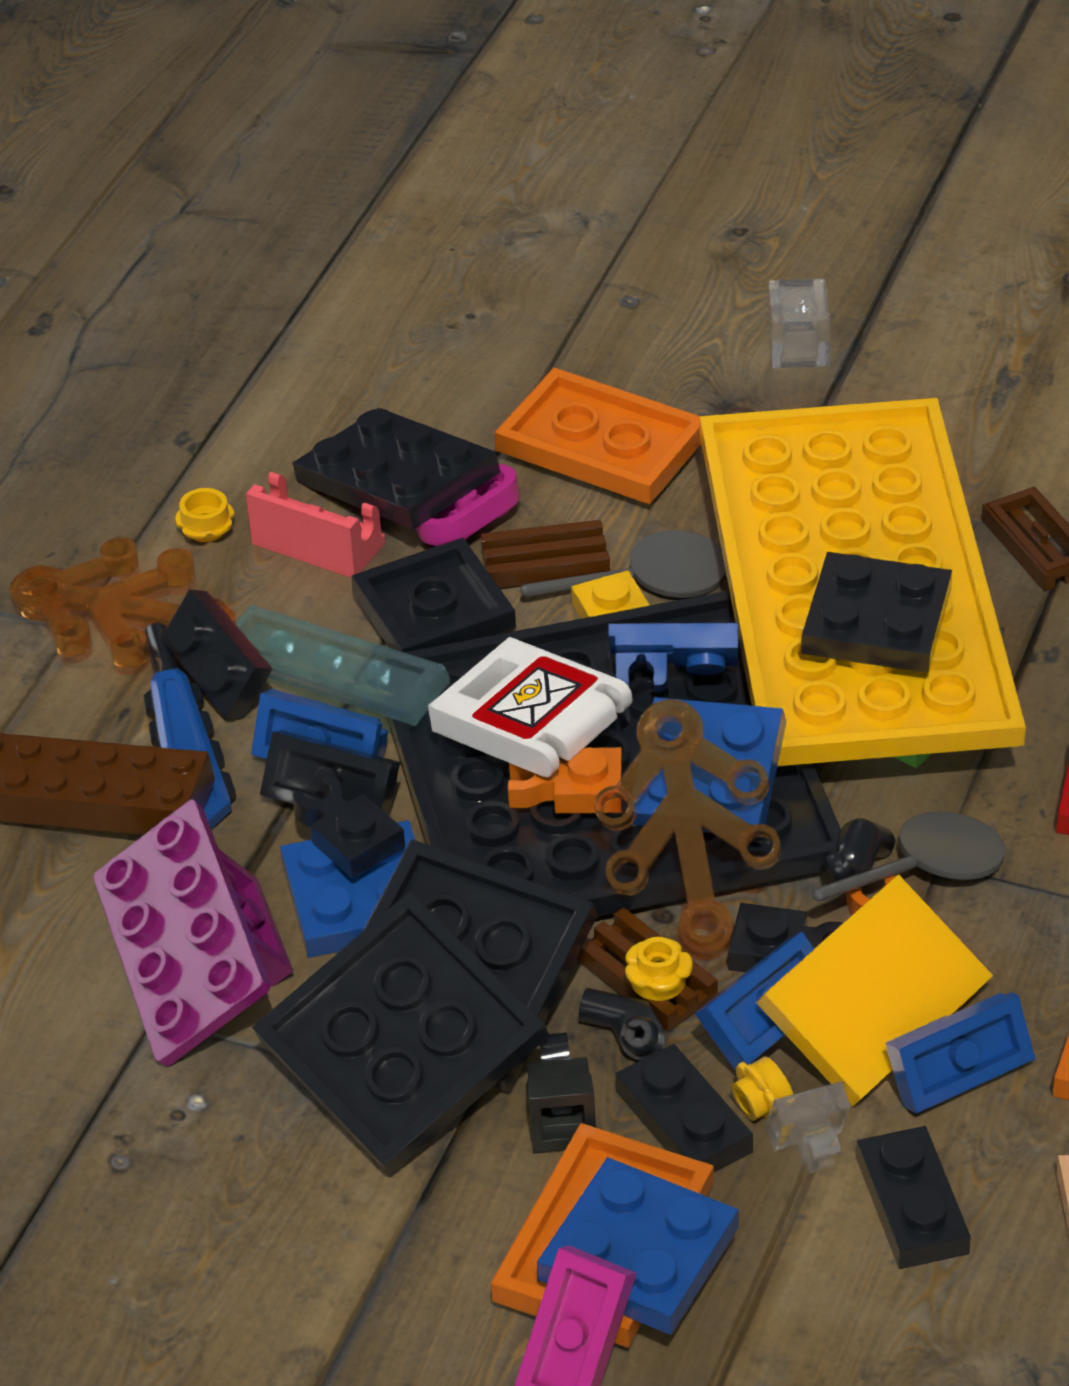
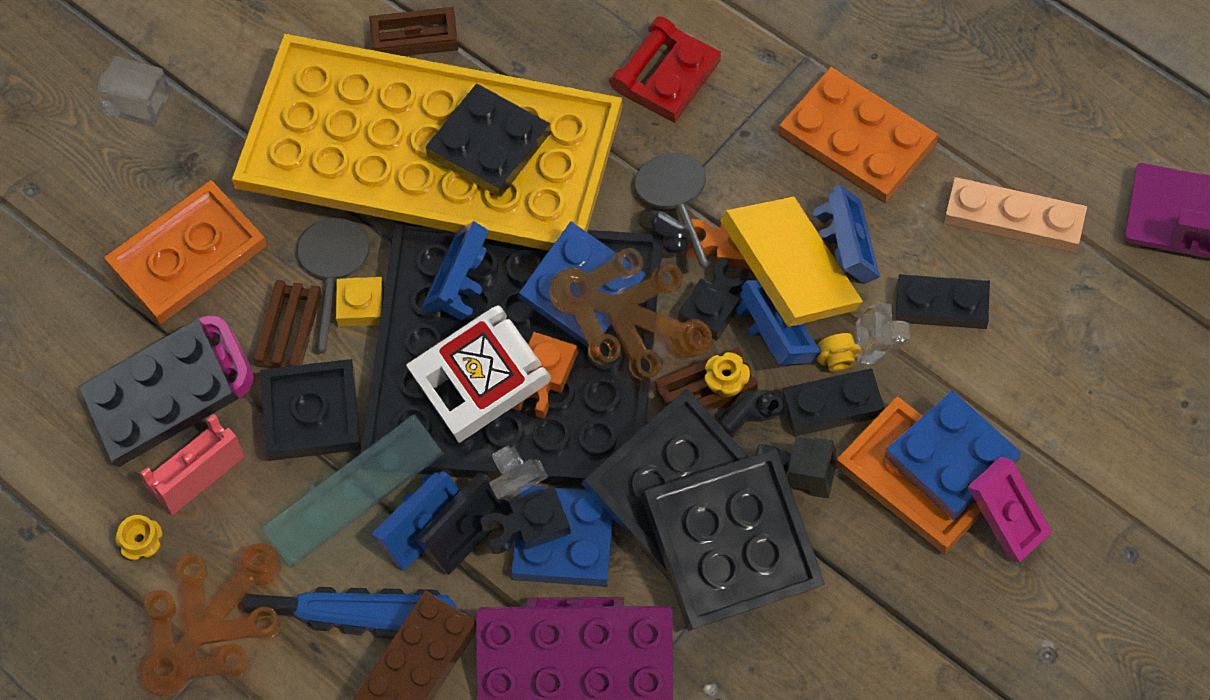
camera: 70 degrees left, 20 degrees up
(216, 653) = (307, 563): black plate -> none
(399, 789) = (516, 474): none -> clear tile

